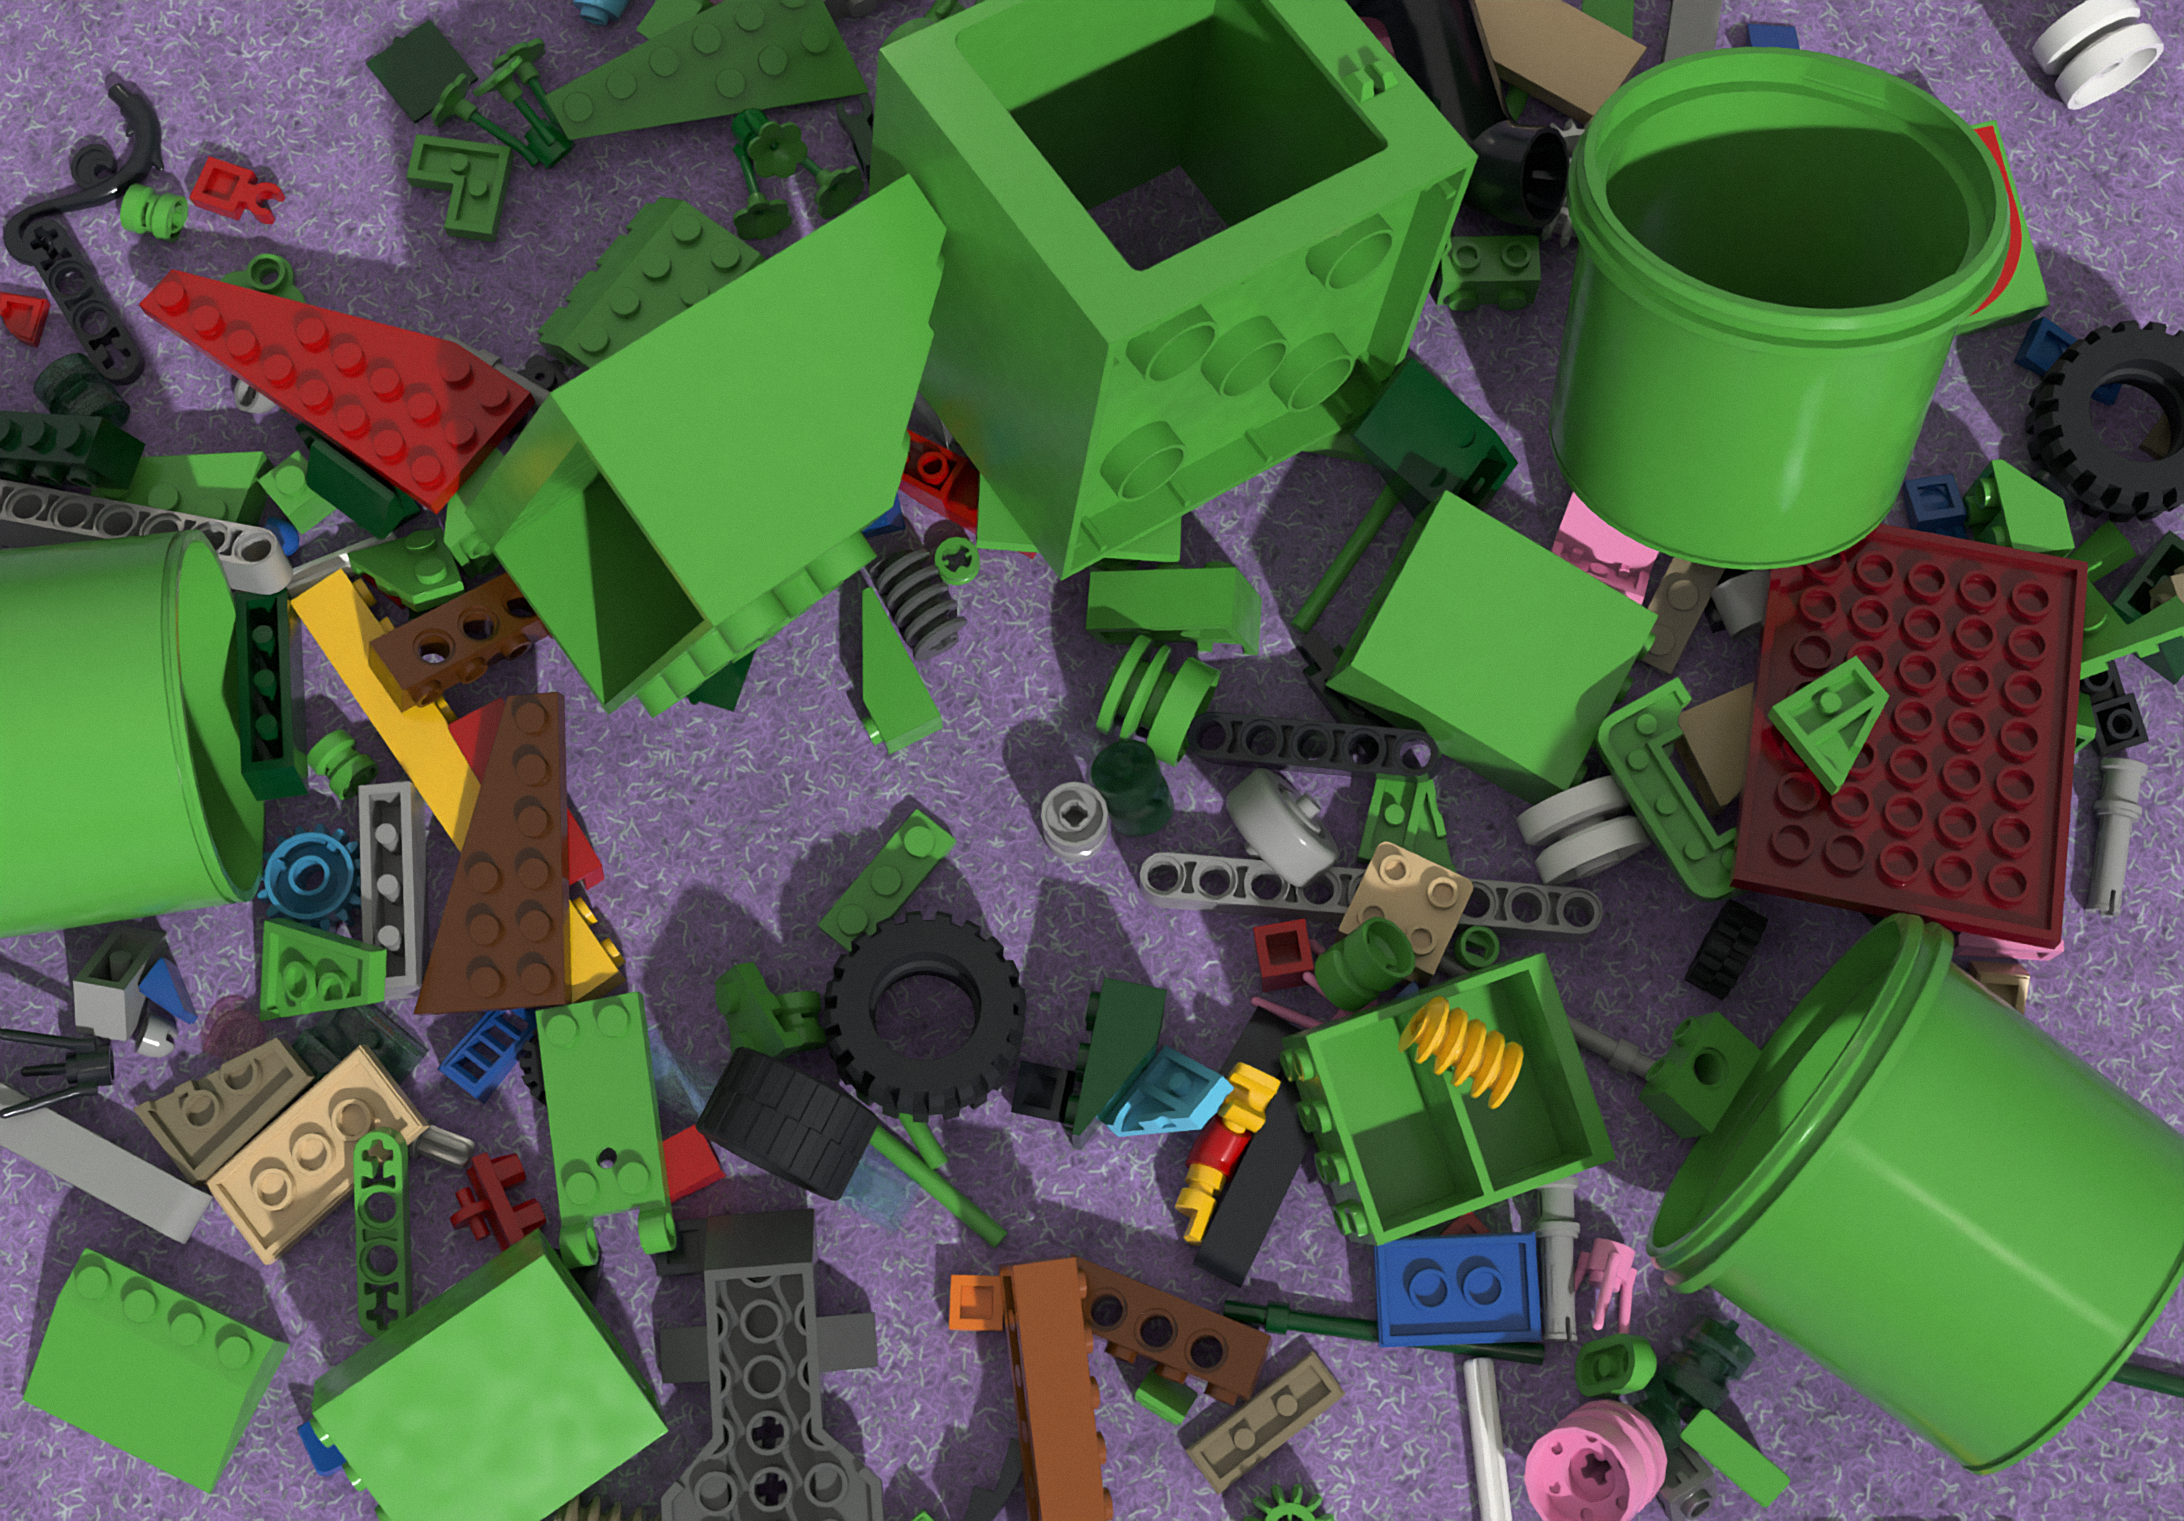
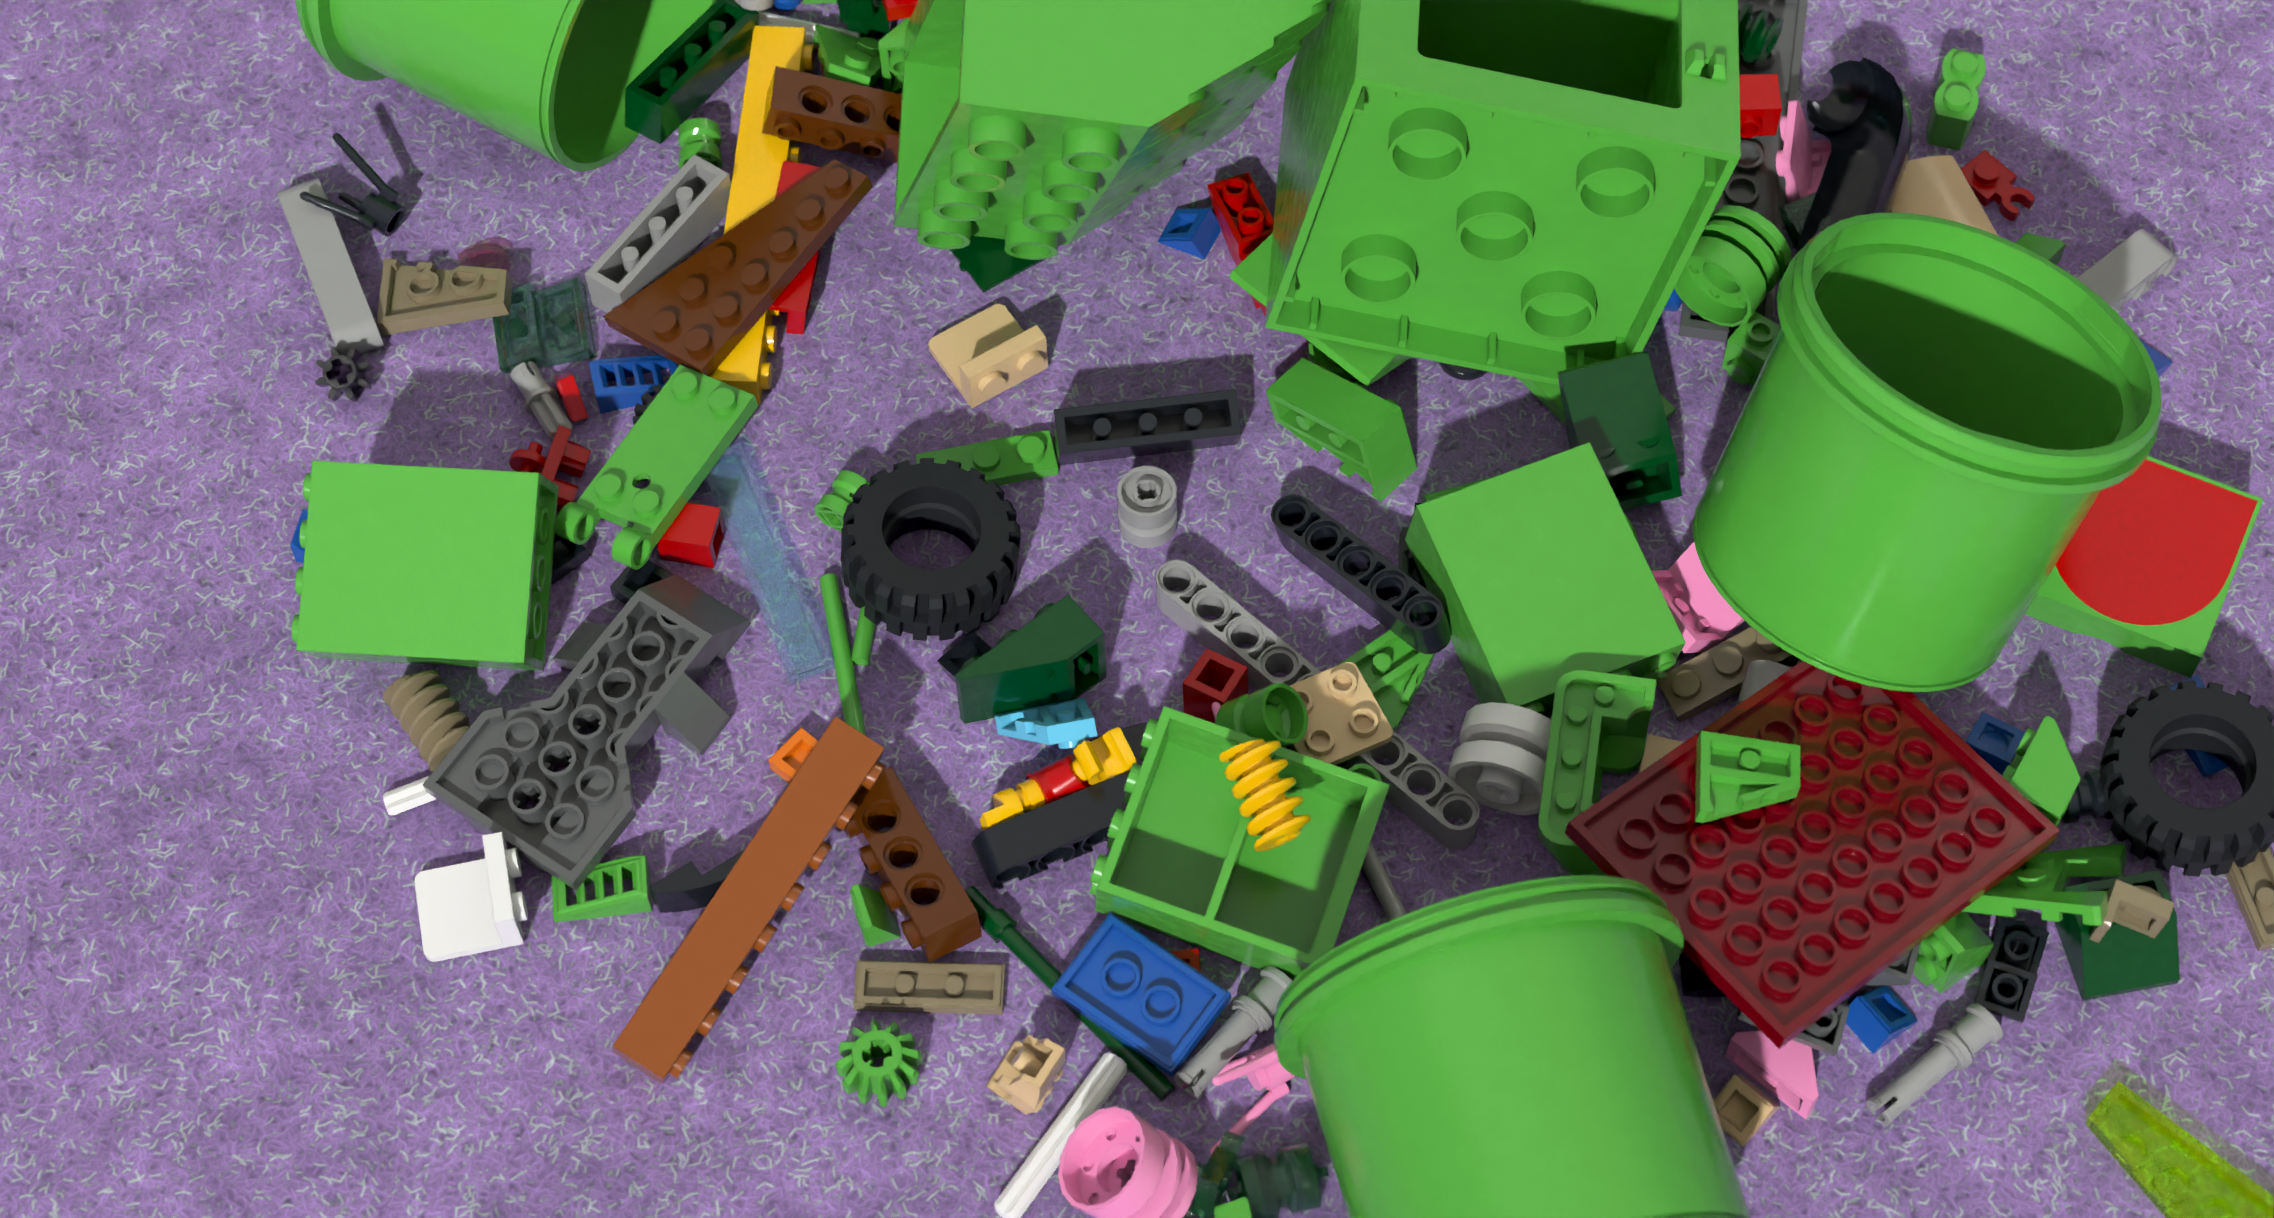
camera: 40 degrees right, 15 degrees down
(107, 986) = (442, 178): light grey slope -> none
(151, 1369) = (251, 413): bright green slope -> none
(152, 1037) = (435, 225): light grey hinge -> none
(167, 989) = (470, 202): blue slope -> none
(203, 1247) = (332, 369): none -> black gear
(293, 865) = (612, 198): dark azure gear -> none
(305, 1157) = (468, 361): tan tile -> none
(316, 970) = (565, 246): bright green wing -> none
(375, 1232) = (456, 424): bright green beam -> none
(444, 1111) = (571, 397): none -> red tile
(751, 1012) = (811, 489): bright green wing -> none
(787, 1123) = (773, 534): black tyre -> none
(797, 774) = (989, 354): none -> tan bracket
(893, 691) = (1101, 339): bright green slope -> none
(918, 602) = (1168, 303): dark grey piece -> none
(963, 574) = (1225, 289): bright green bush -> none
(1008, 745) = (1146, 427): none -> black brick
(1132, 787) = (1206, 510): clear green wheel -> none
(1156, 698) = (1273, 458): bright green wheel -> none
(1282, 827) = (1288, 606): light grey wheel -> none
(1422, 1438) = (1028, 1073): none -> tan hand
(1614, 1366) = (1210, 1123): bright green plate -> none

